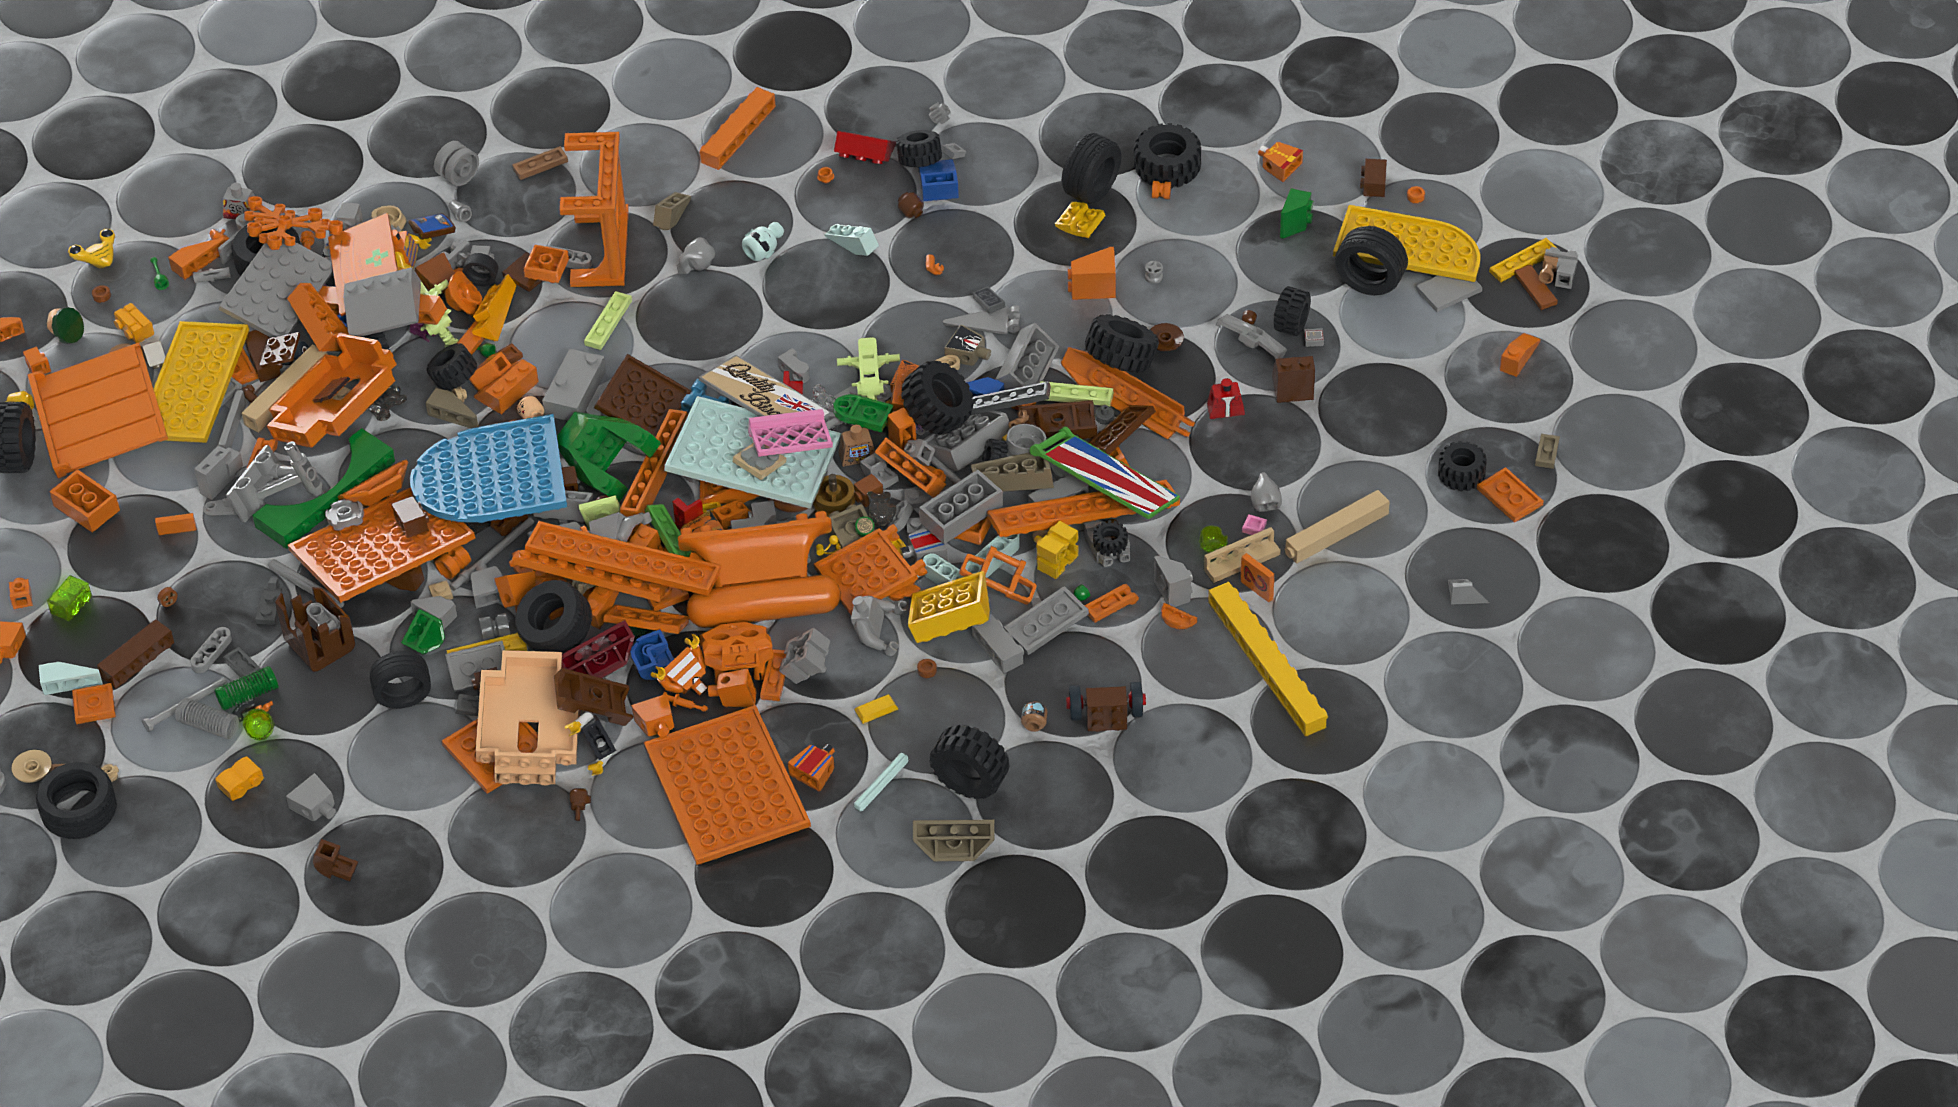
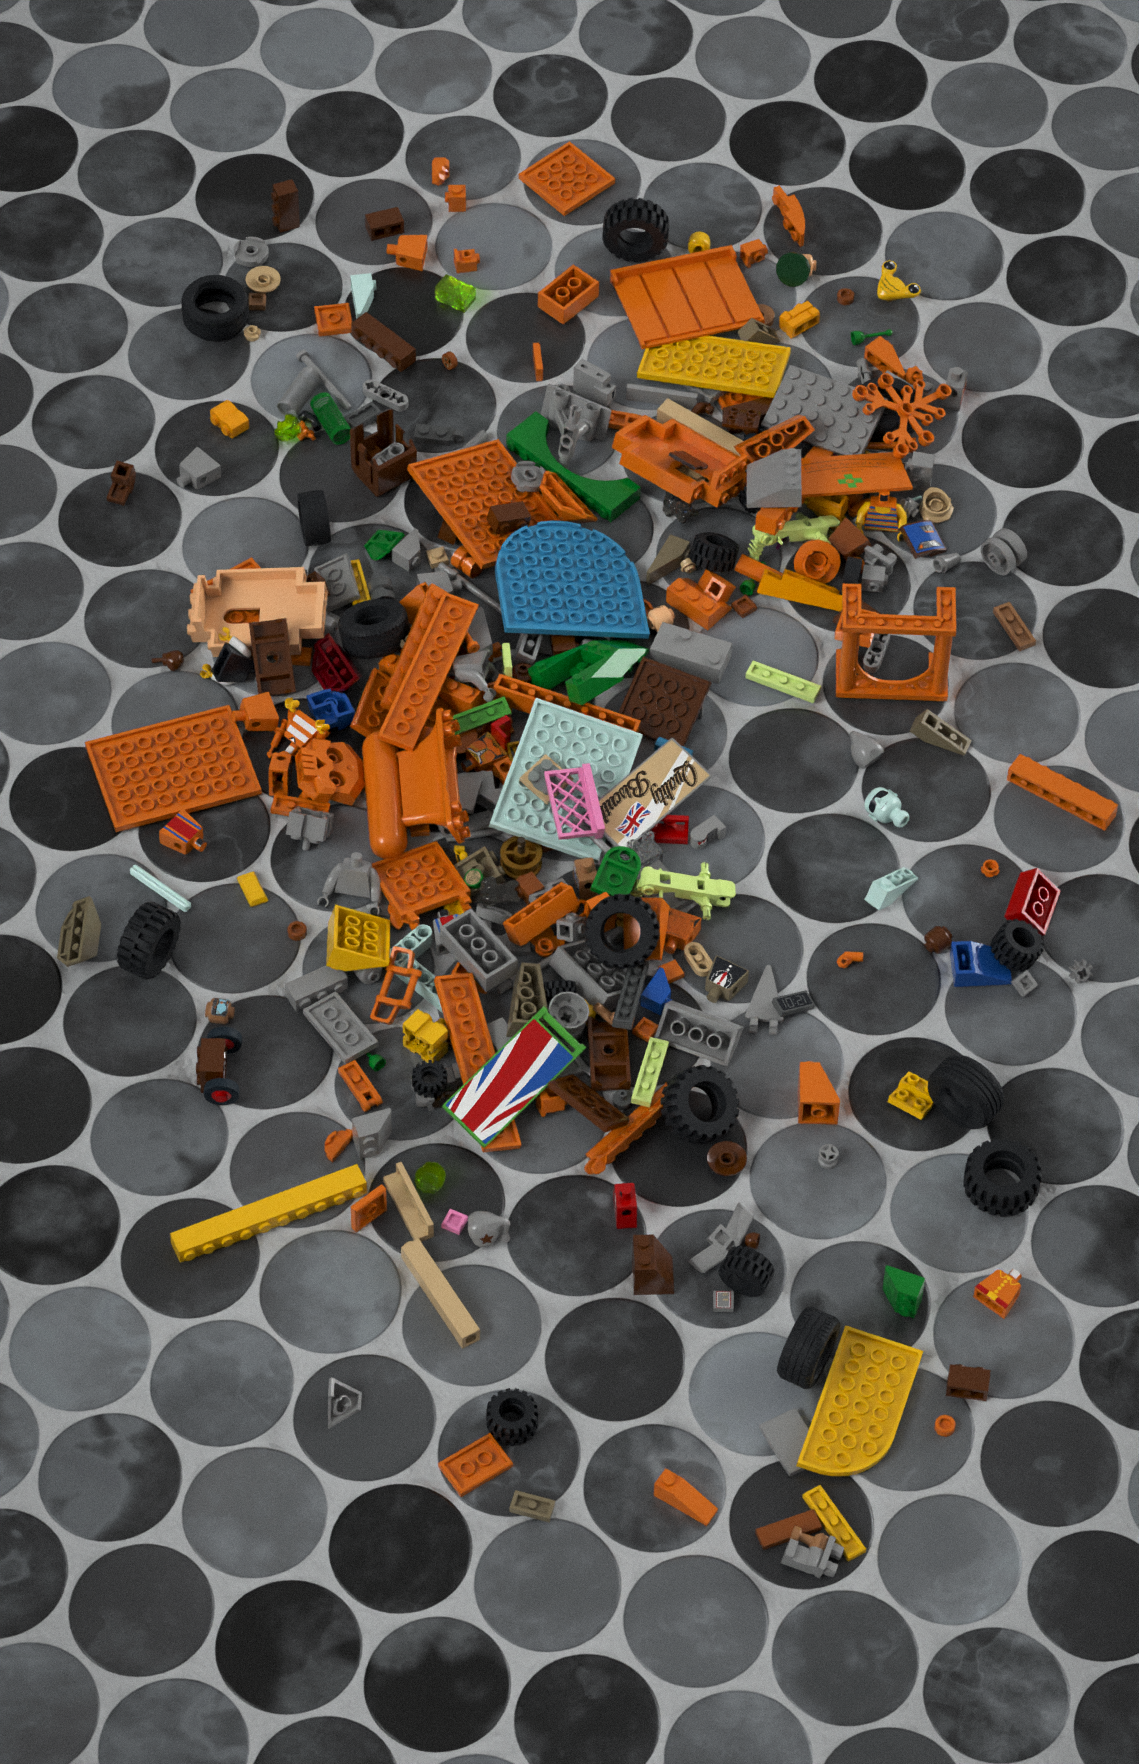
camera: 90 degrees right, 5 degrees up
(1161, 190) = (955, 1169): orange wheel -> none

